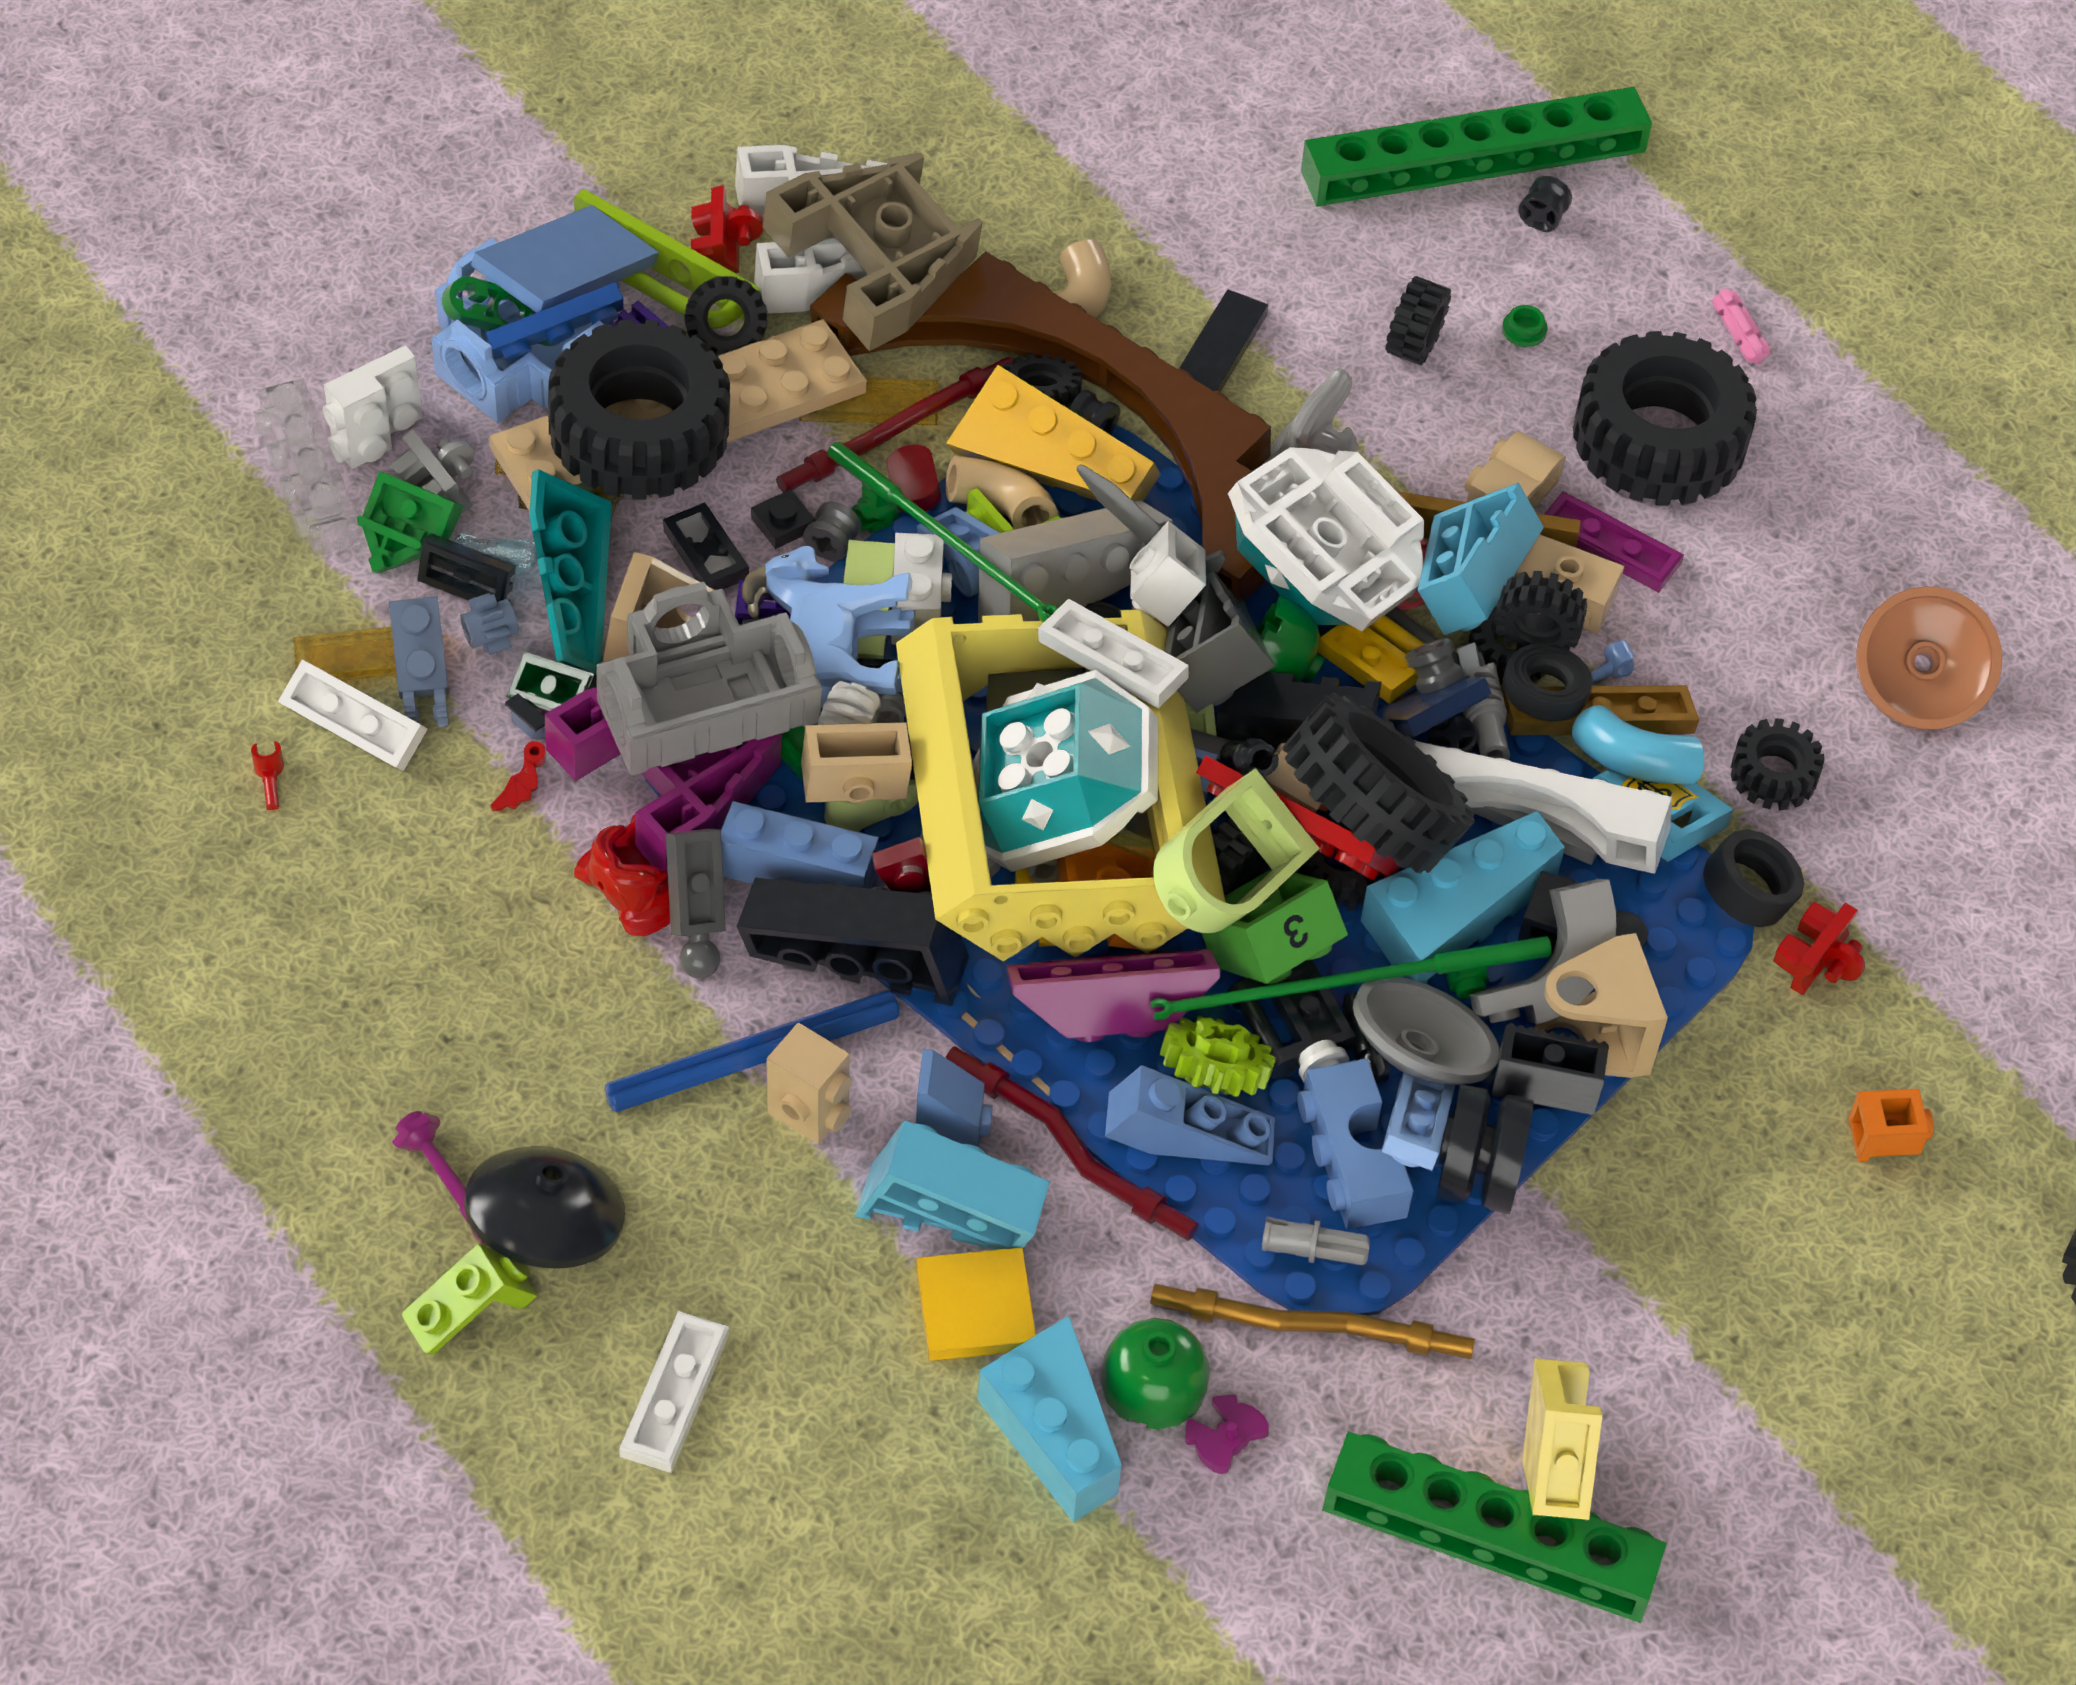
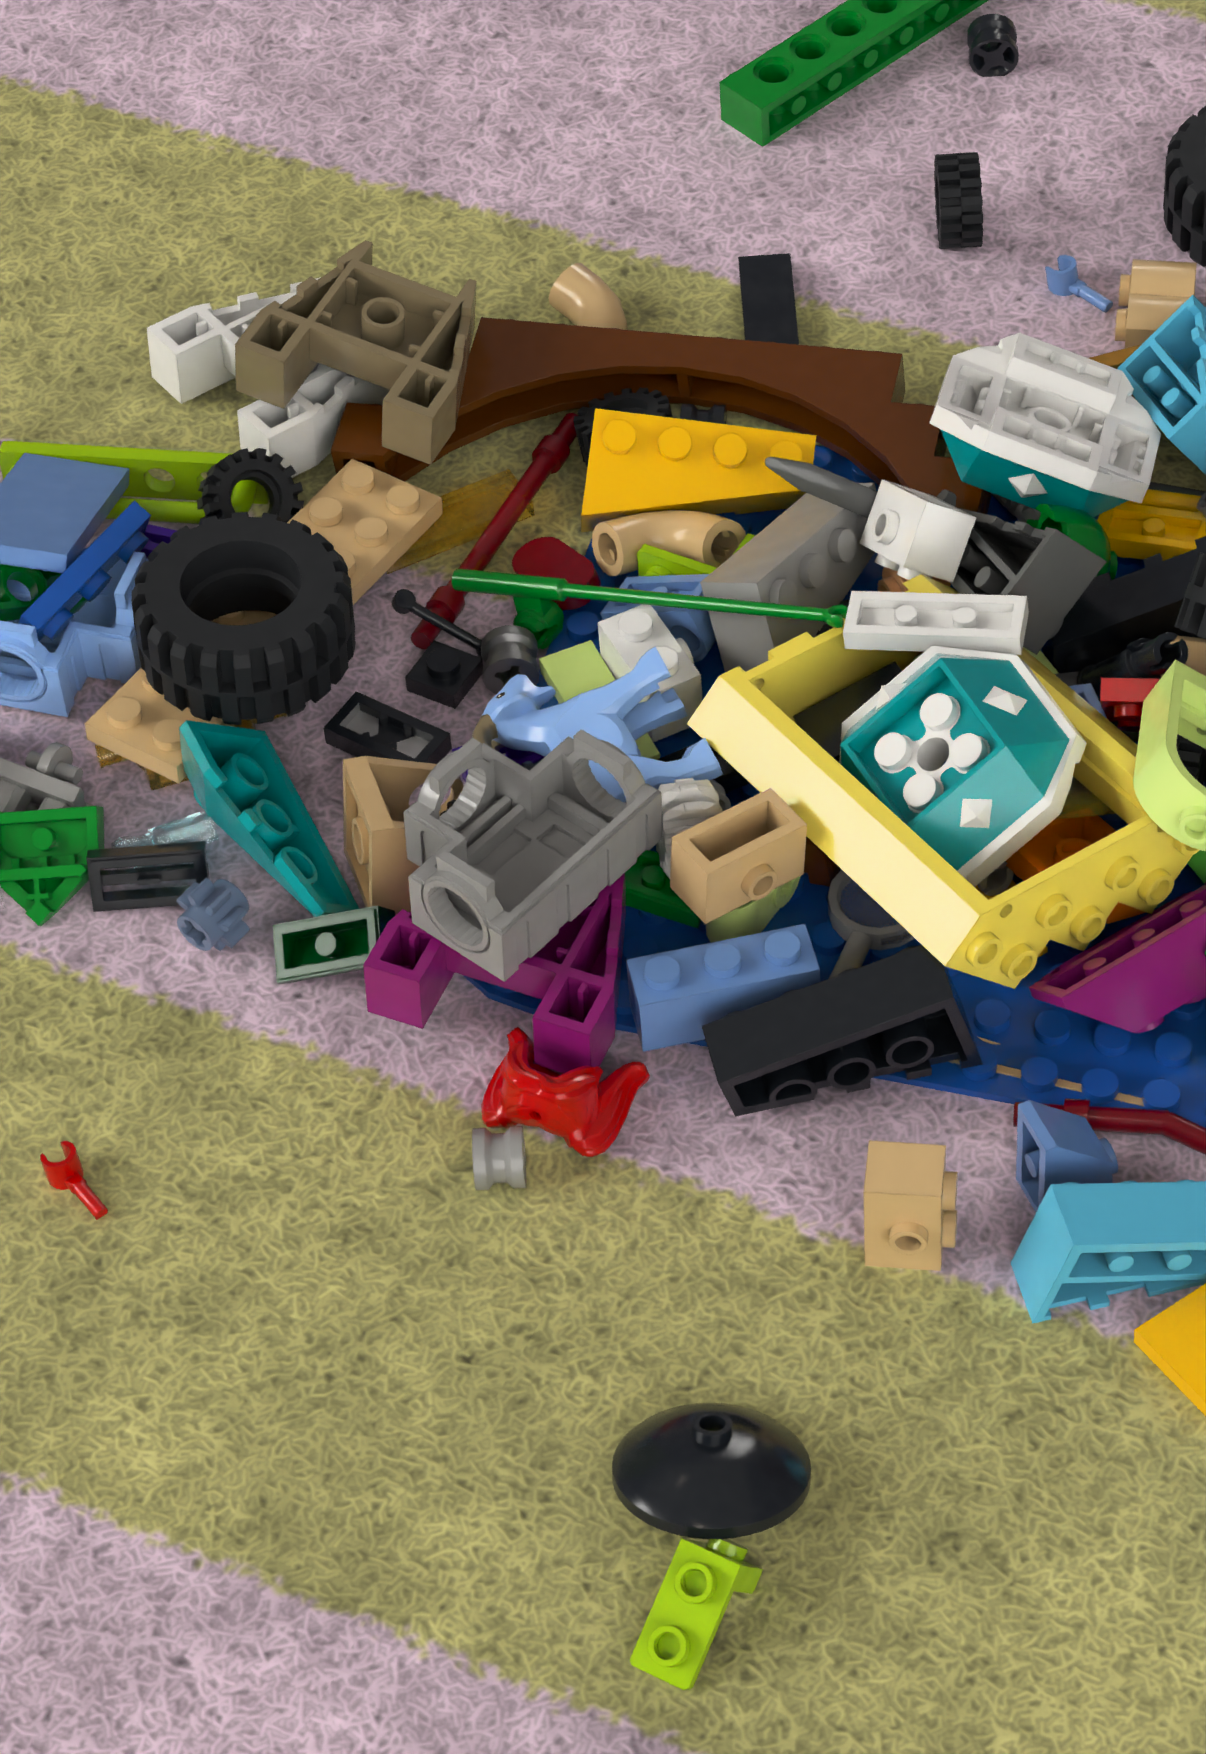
camera: 20 degrees left, 5 degrees down
(349, 653) = (95, 1008): clear yellow tile -> none
(352, 715) = (128, 1075): white plate -> none
(417, 1133) = (515, 1466): magenta piece -> none
(419, 655) = (163, 984): sand blue hinge -> none
(524, 783) = (362, 1060): red piece -> none
(526, 717) = (319, 991): black piece -> none
(562, 904) = (499, 1158): none -> light grey wheel
(674, 1392) = (981, 1593): white tile -> none
(696, 897) = (648, 1078): dark grey plate -> none
(726, 227) = (194, 409): red hips -> none
(746, 1052) = (801, 1214): blue axle -> none
(781, 450) = (405, 602): none -> black hinge
(904, 867) = (866, 934): dark red piece -> none
(1313, 423) = (939, 338): light grey hair -> none
(1466, 426) = (1066, 282): none -> medium blue hand
(1525, 326) = (1056, 165): green plate -> none

